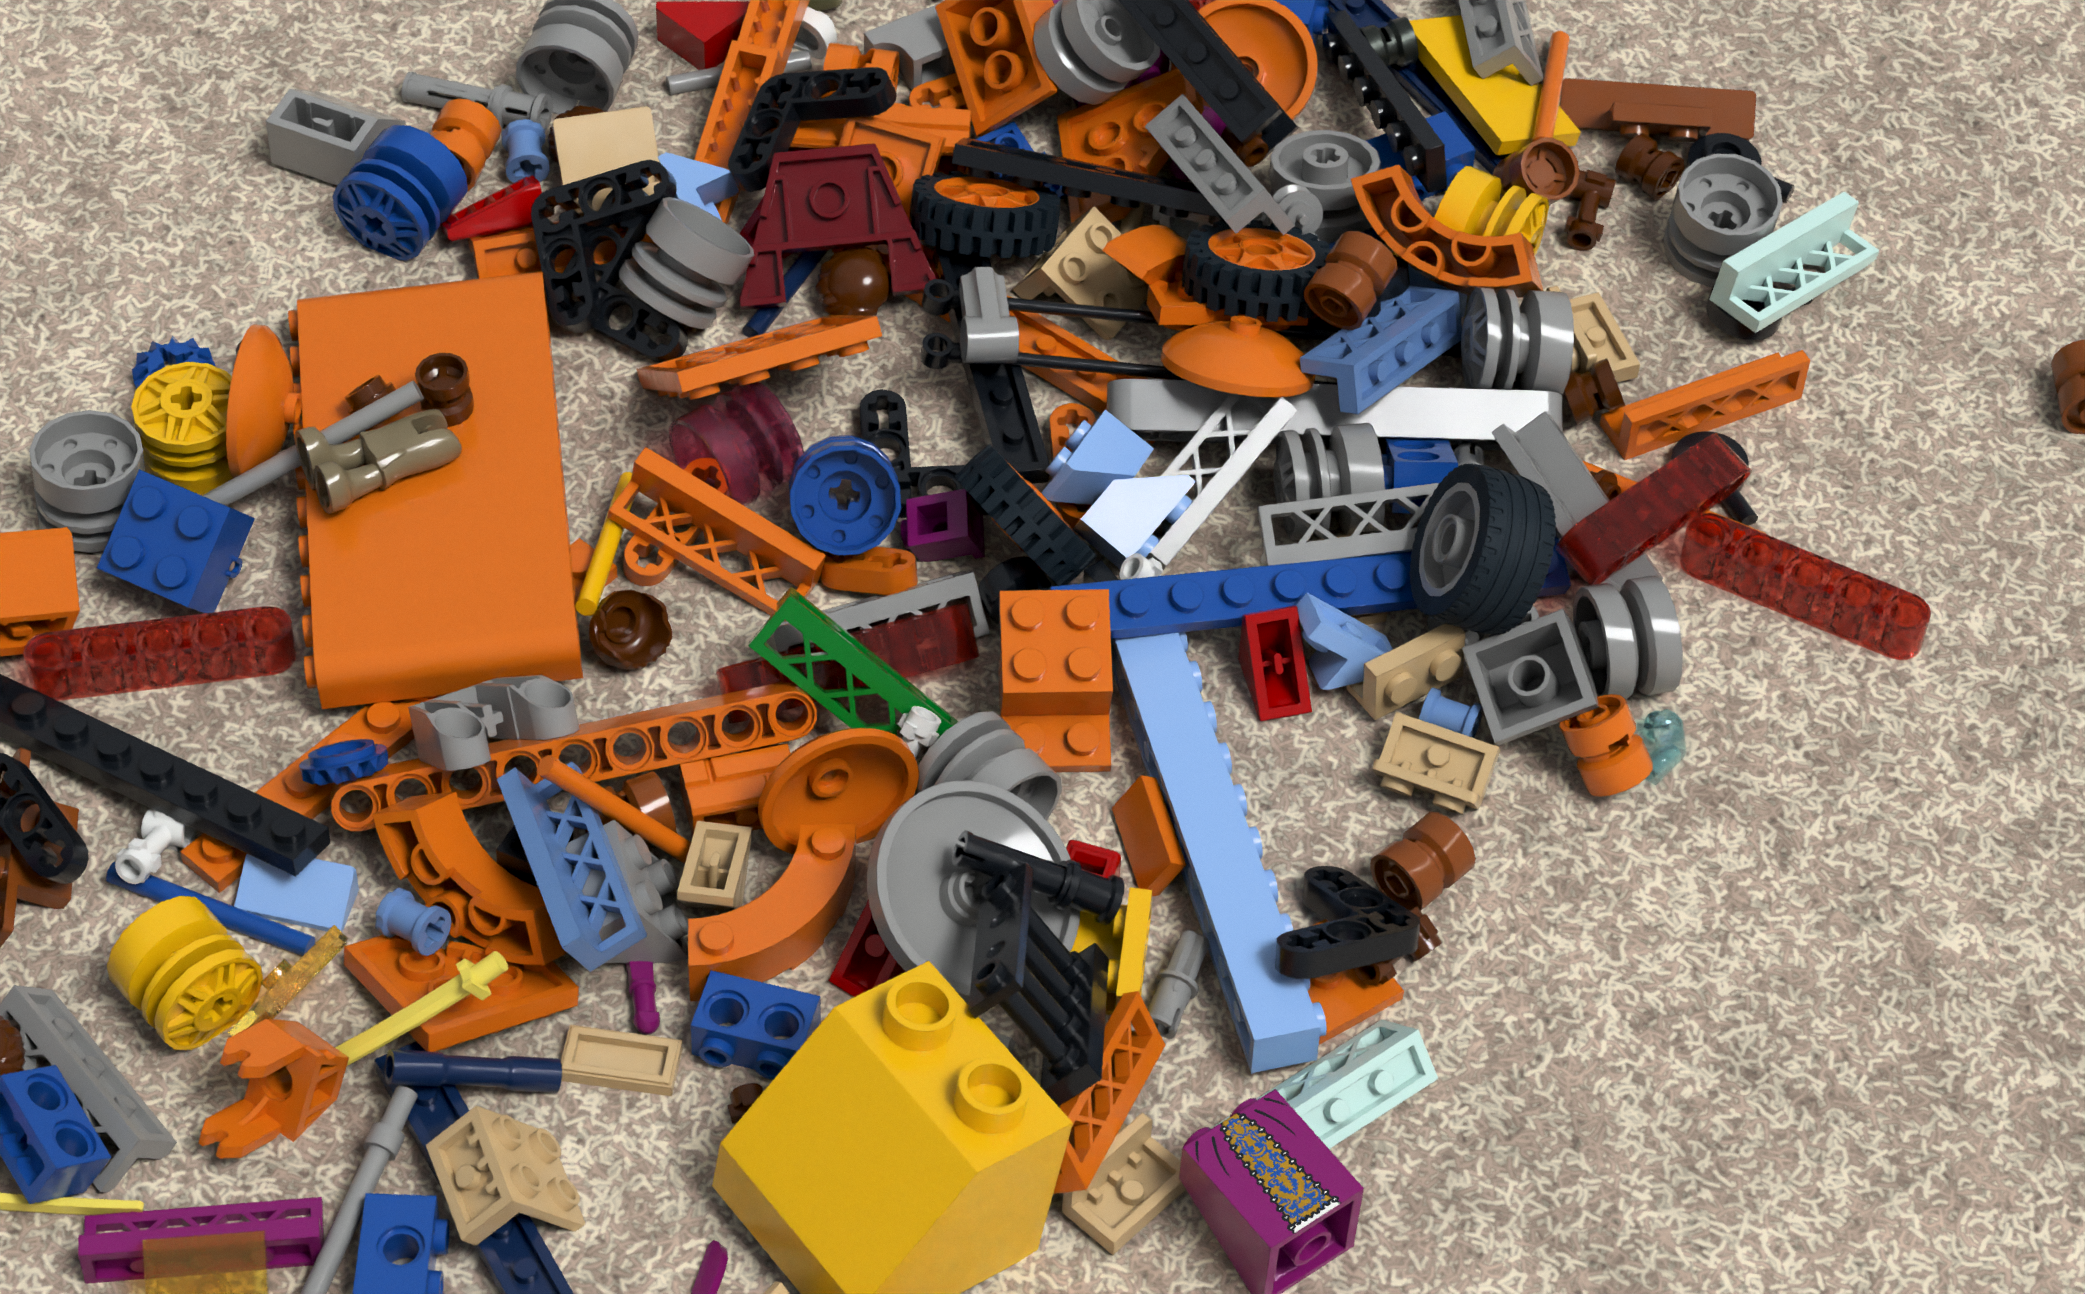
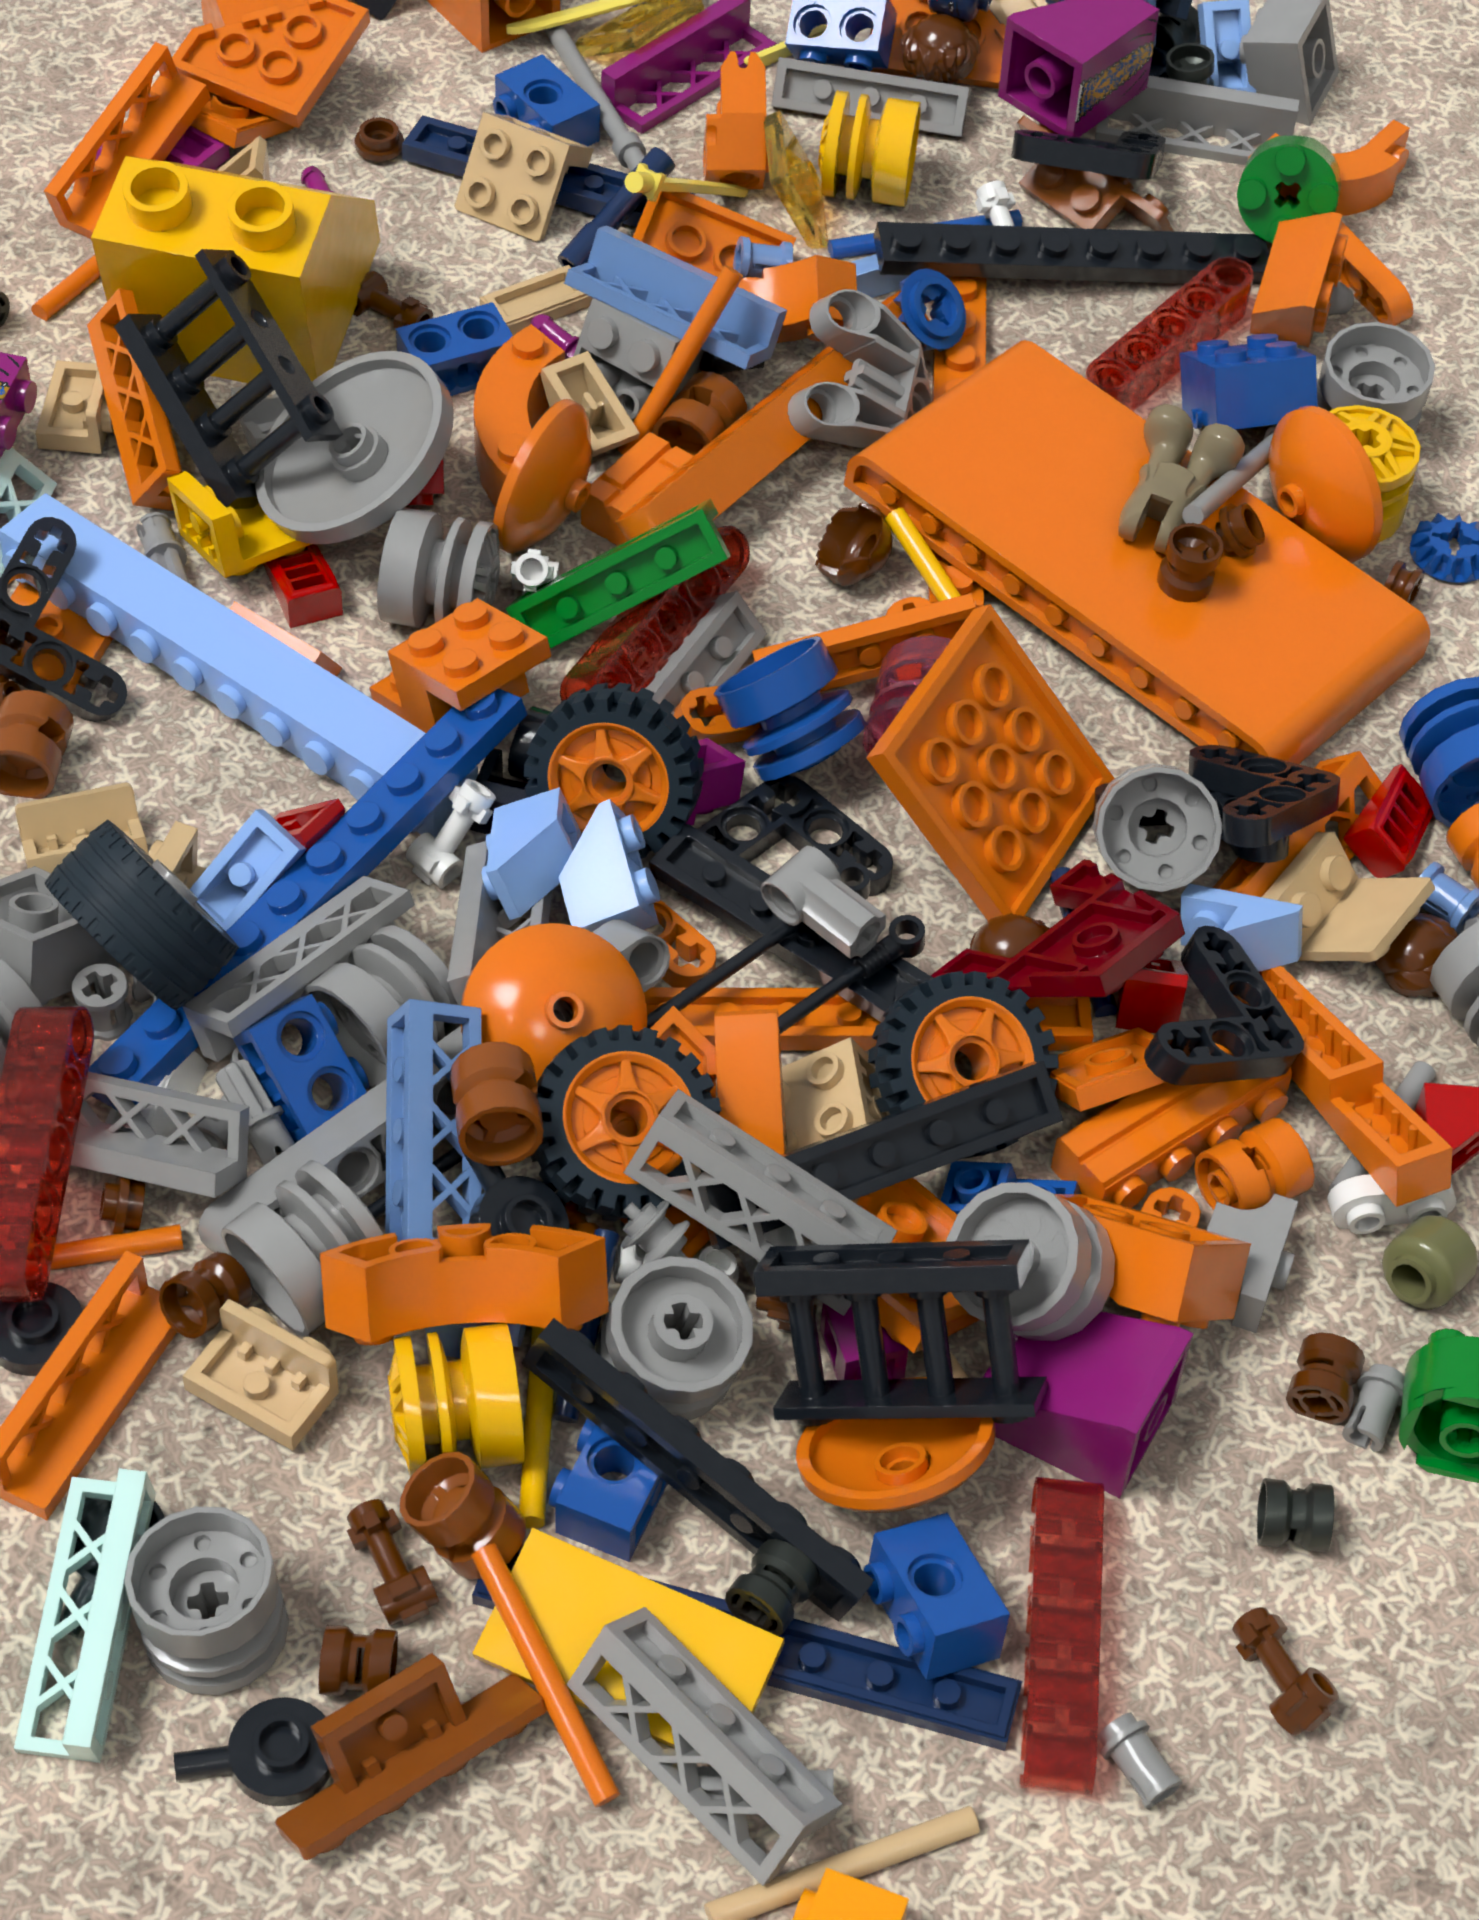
camera: 140 degrees right, 0 degrees up
(1062, 883) = (360, 425): black pin -> none

